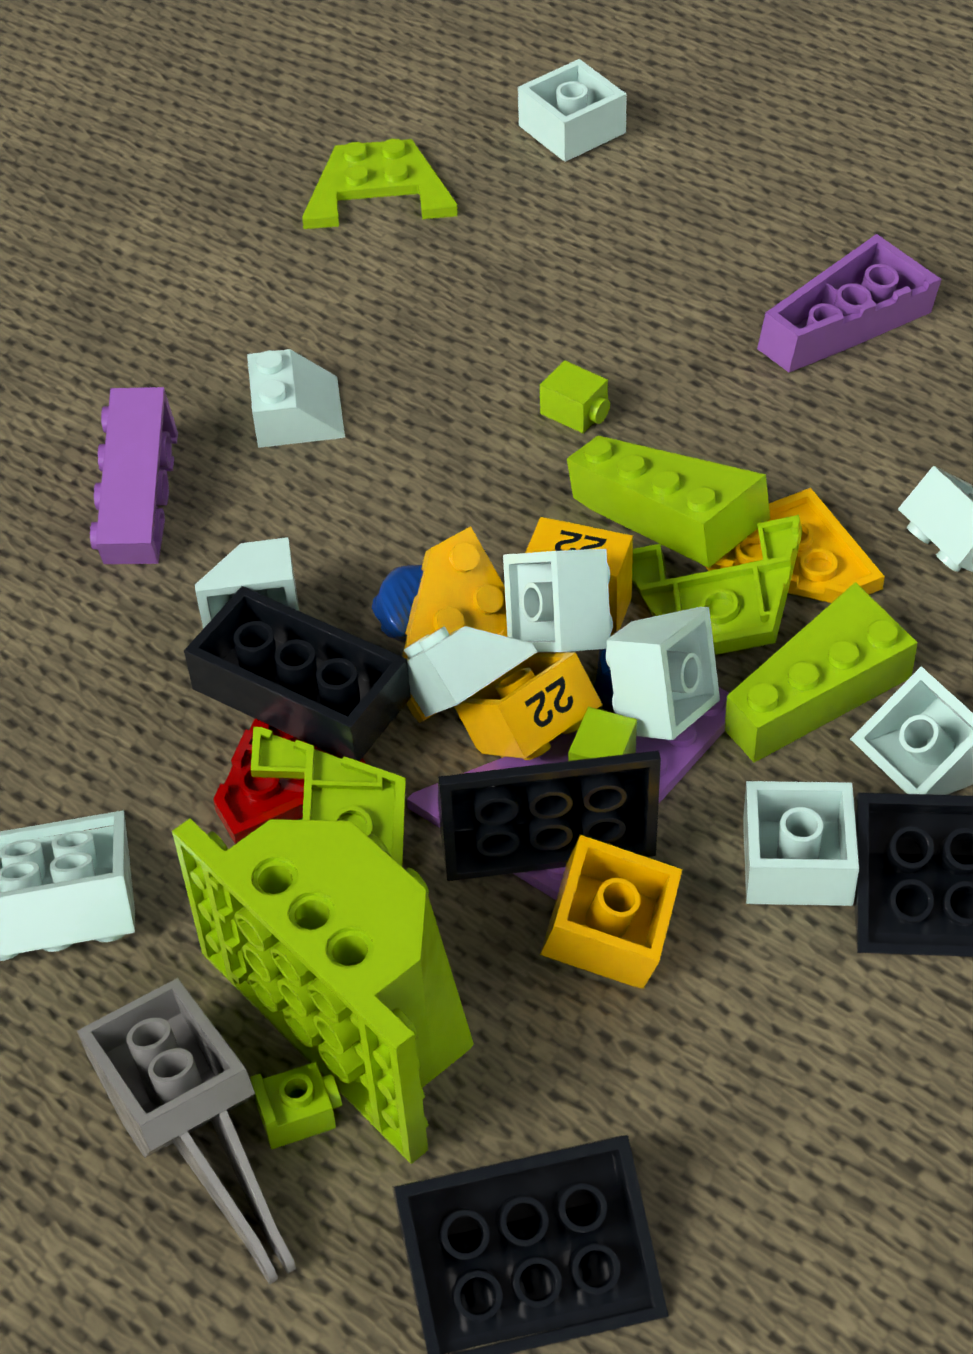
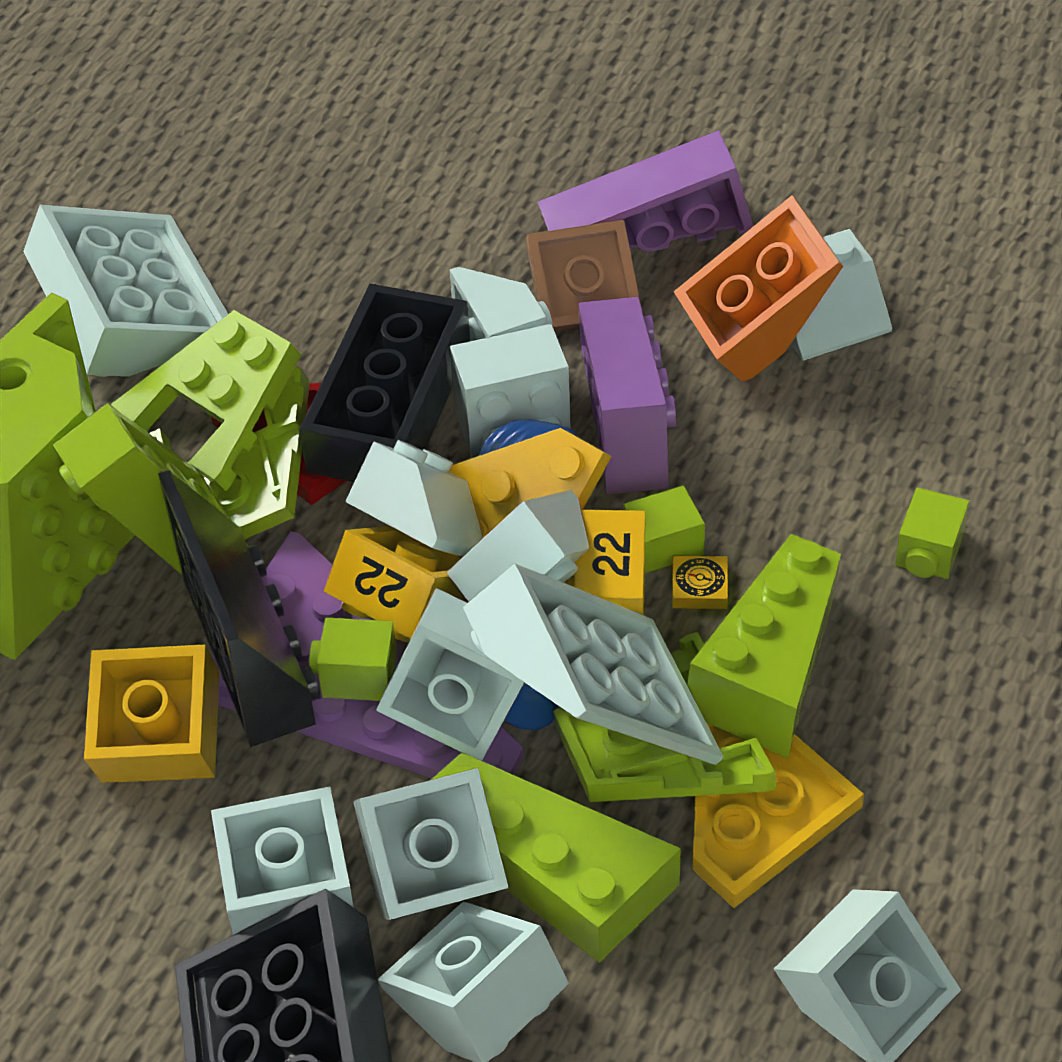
camera: 75 degrees right, 0 degrees up
(194, 531) = (580, 267): none -> medium nougat plate
(233, 784) = (225, 373): none -> lime wing
(300, 410) = (761, 290): none -> orange slope
(331, 582) = (509, 380): none -> light aqua brick
(350, 529) = (627, 393): none -> medium lavender wedge
(411, 820) = (120, 470): none -> lime wedge
(506, 535) = (671, 527): none -> lime brick
(696, 564) = (589, 659): none -> light aqua slope
(812, 731) = (430, 844): none -> light aqua slope

